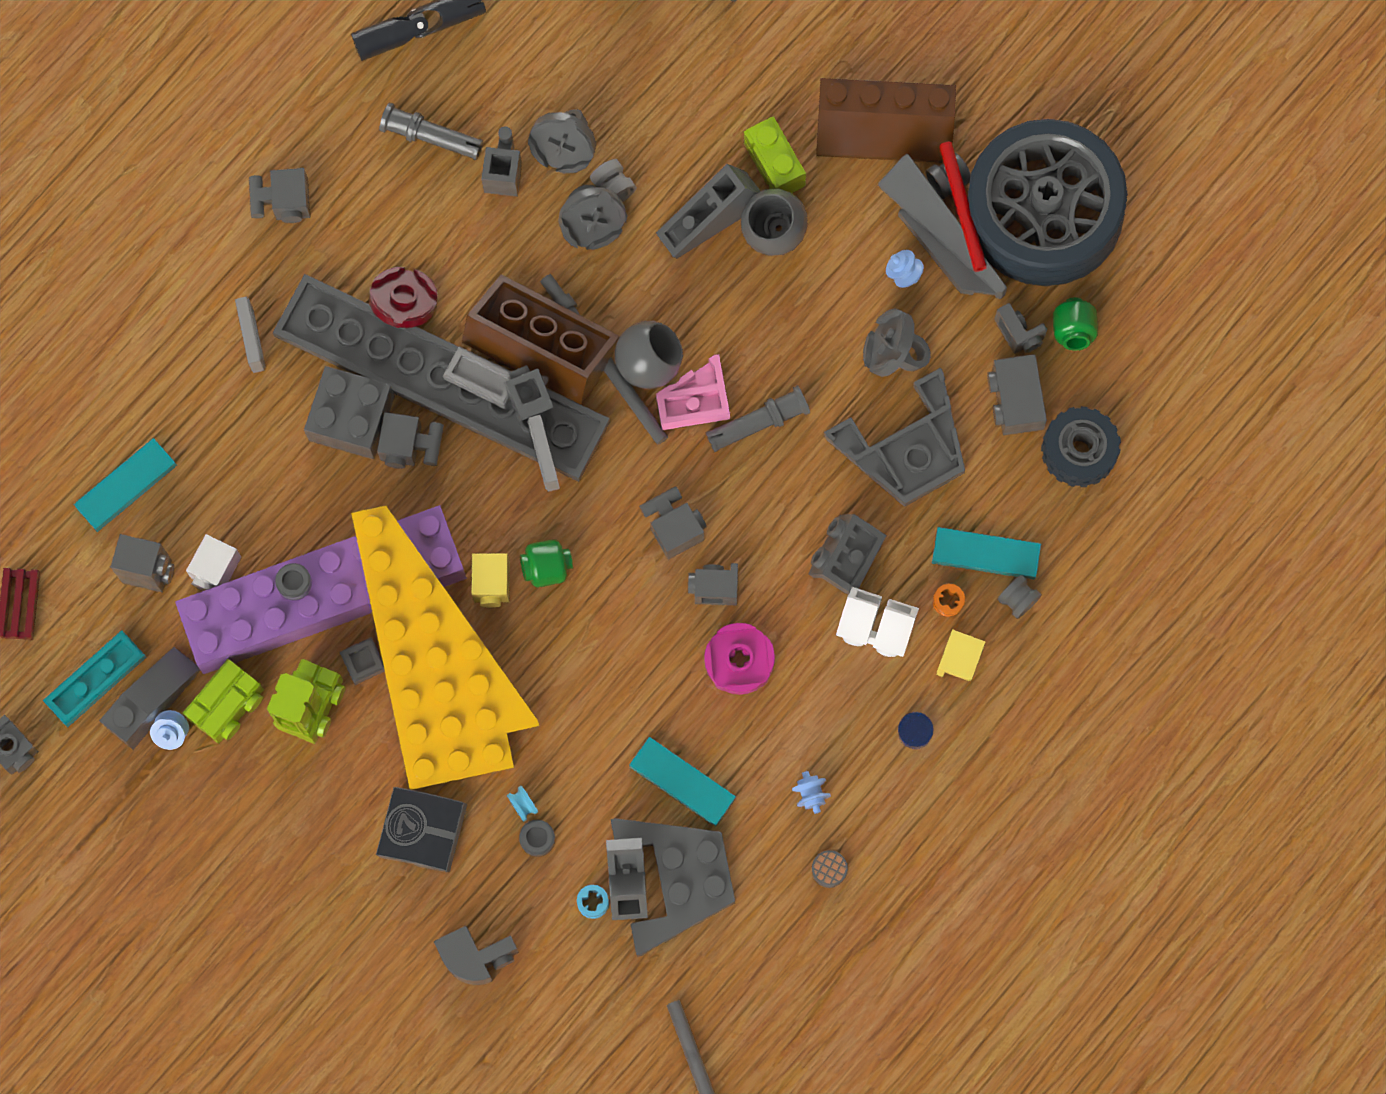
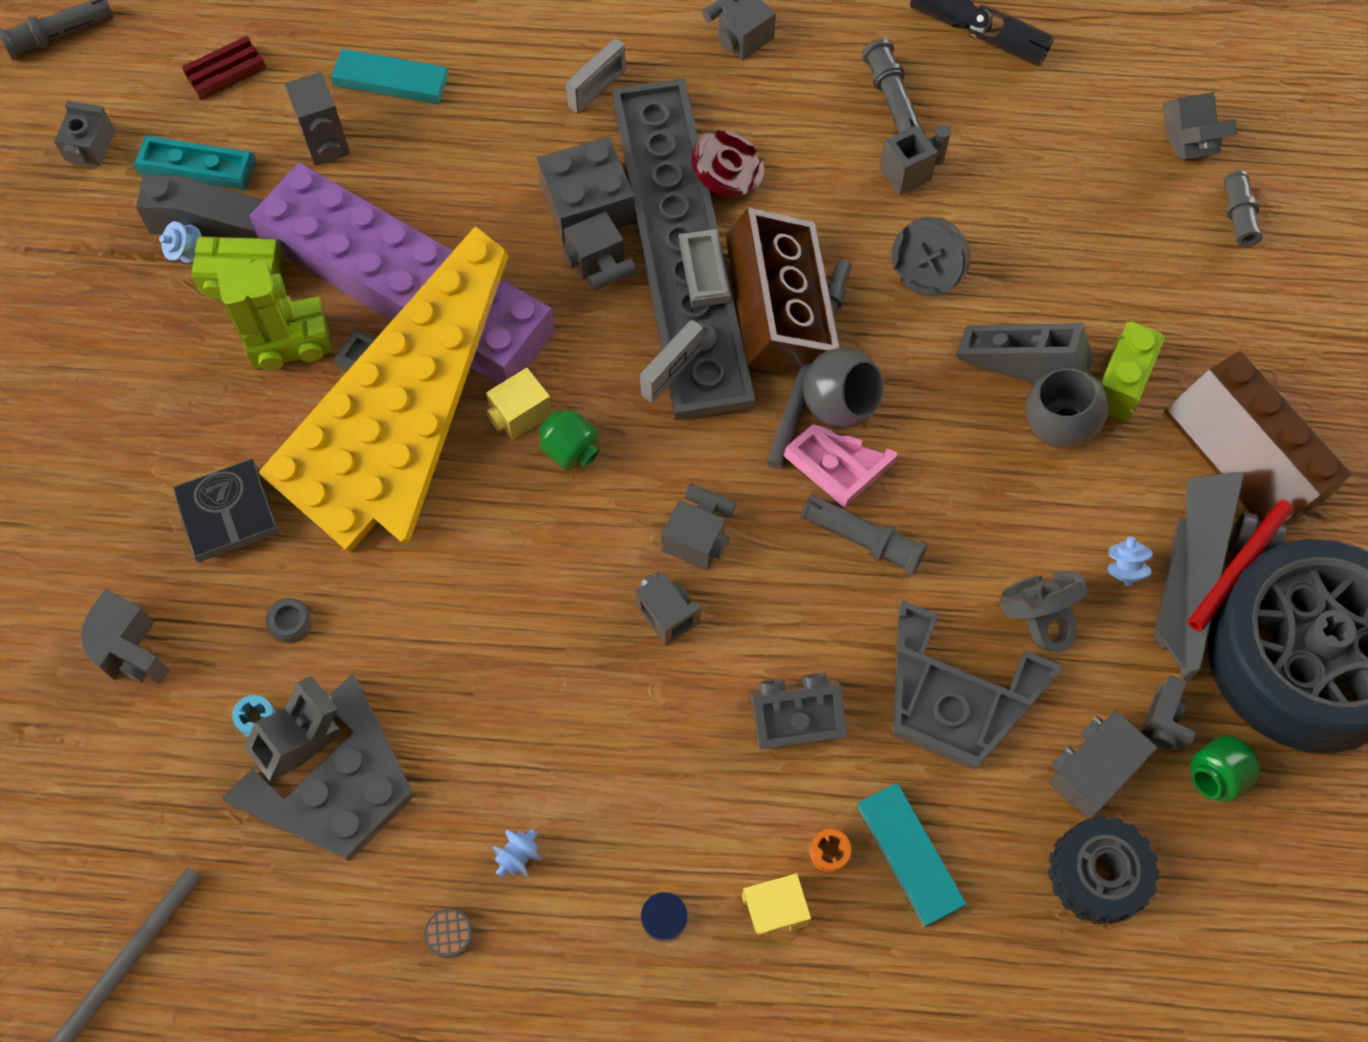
camera: 50 degrees right, 10 degrees down
(212, 563) = (362, 173): white brick -> none
(293, 581) = (381, 233): dark grey tile -> none
(522, 803) = (312, 580): medium azure bush -> none
(537, 402) = (715, 292): dark grey brick -> none
(562, 141) = (979, 186): dark grey tile -> none
(611, 177) = (984, 250): light grey wheel -> none
(682, 781) = (441, 718): teal tile -> none
(753, 644) = (608, 708): dark pink plate -> none
(860, 616) = (739, 779): white piece -> none
(1019, 597) = (890, 922): dark grey wheel -> none

